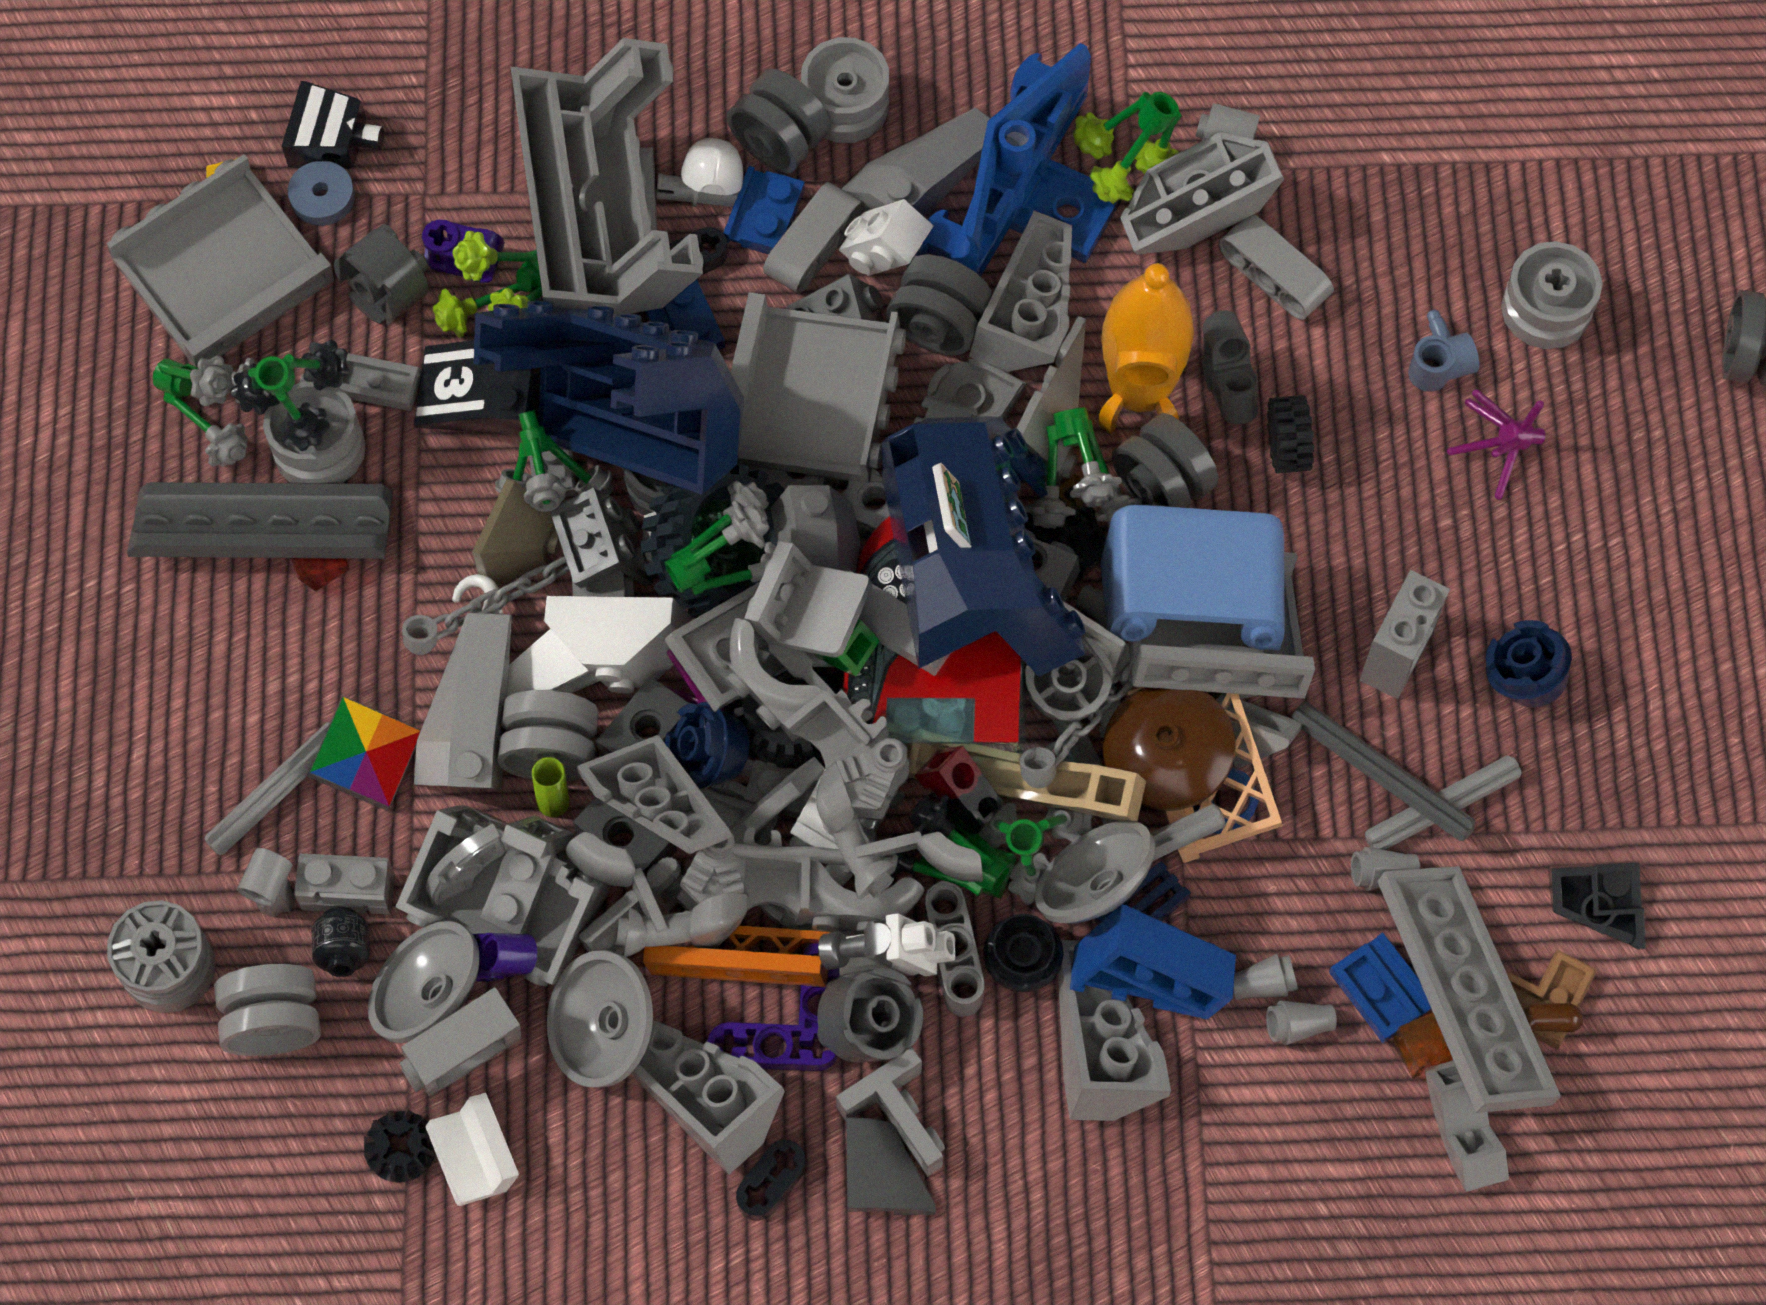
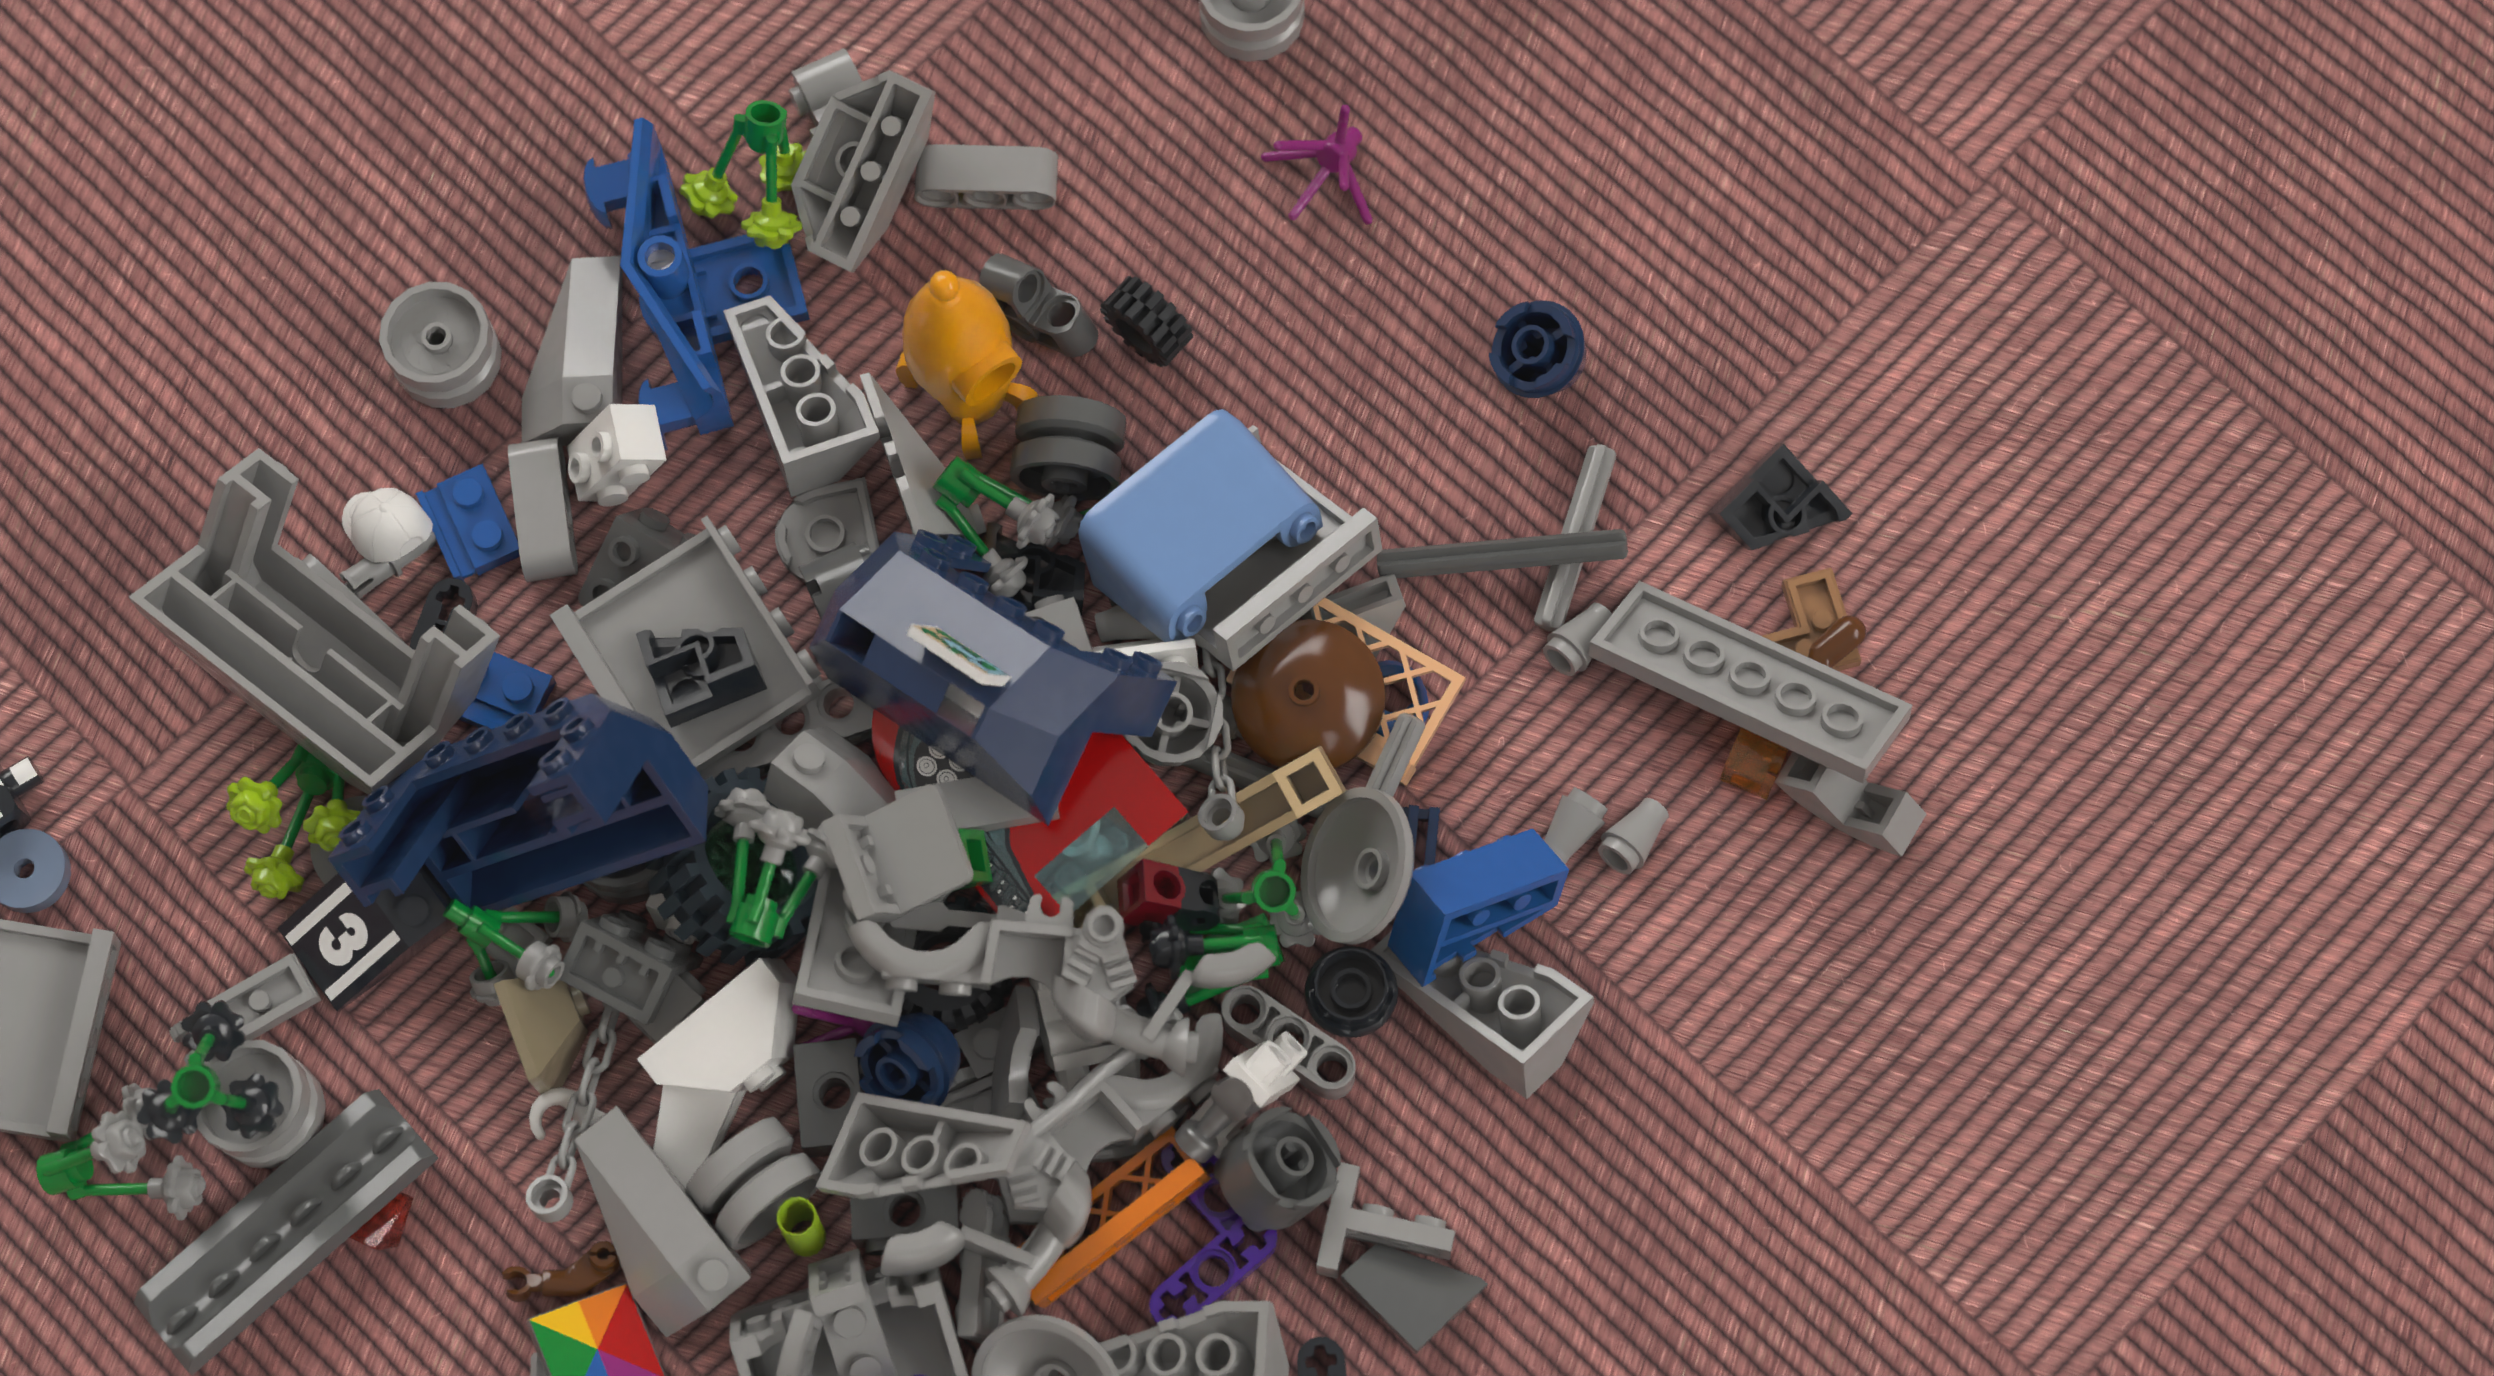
camera: 40 degrees left, 5 degrees up
(383, 275) = (173, 897): dark grey brick -> none
(392, 702) = (574, 1281): none -> reddish brown arm
(436, 243) = (210, 803): dark purple piece -> none
(778, 120) = (409, 427): dark grey wheel -> none
(807, 404) = (700, 671): none -> black slope
(940, 304) = (726, 472): dark grey wheel -> none
(1381, 987) = (1674, 744): blue plate -> none
(1404, 634) = (1413, 423): light grey window -> none
(1454, 354) = (1216, 124): sand blue piece -> none

